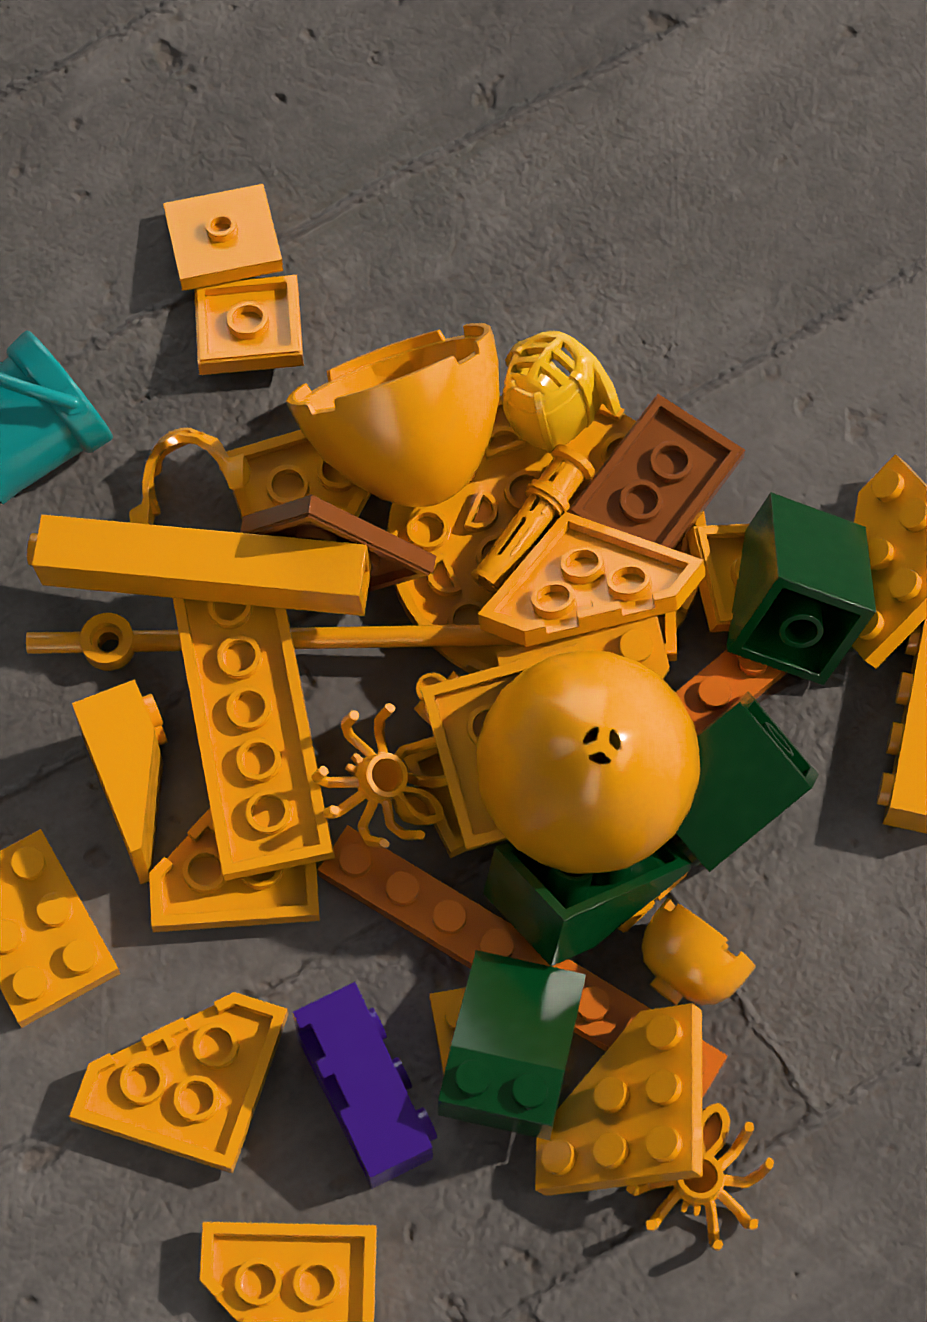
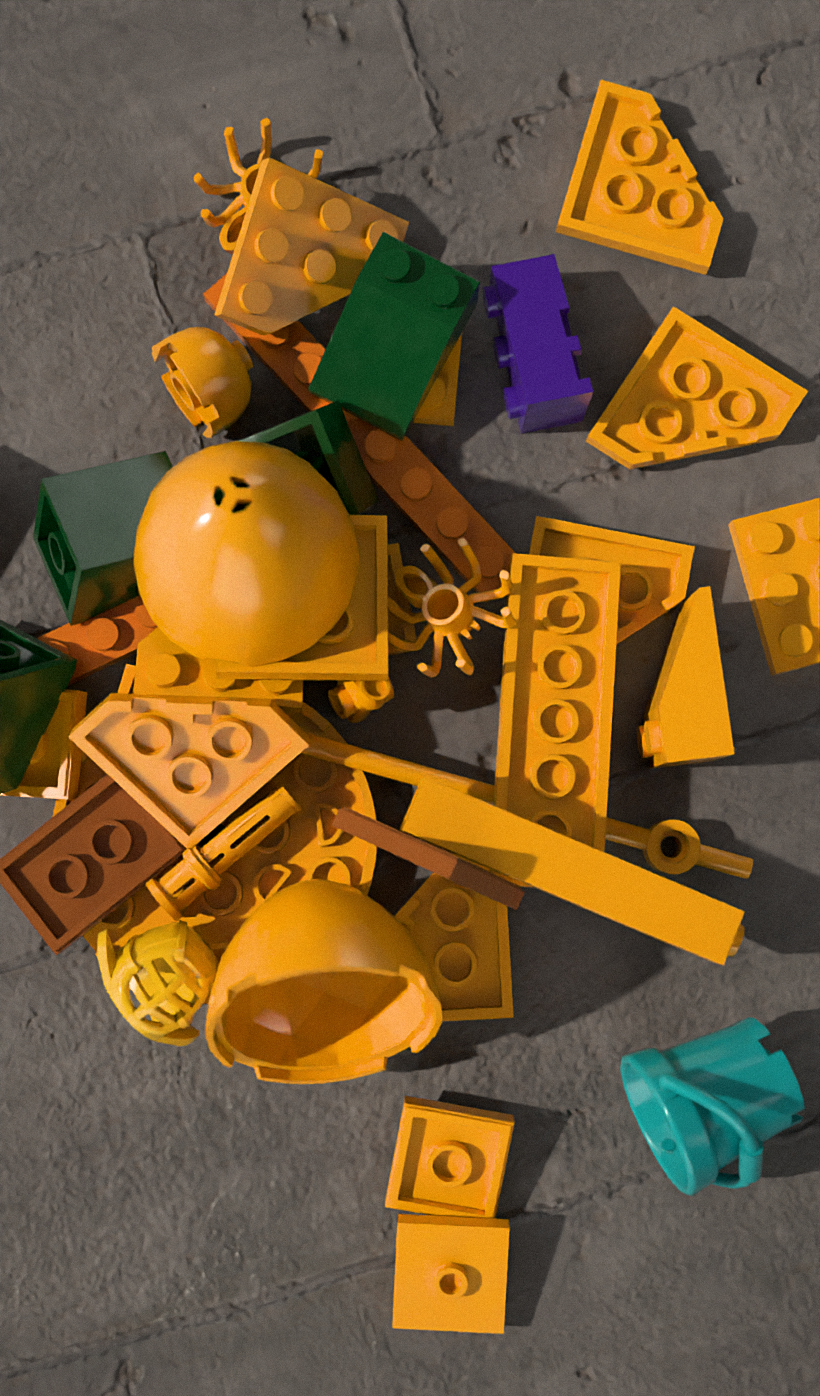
camera: 160 degrees left, 15 degrees up
(235, 469) = (506, 990): light orange helmet -> none

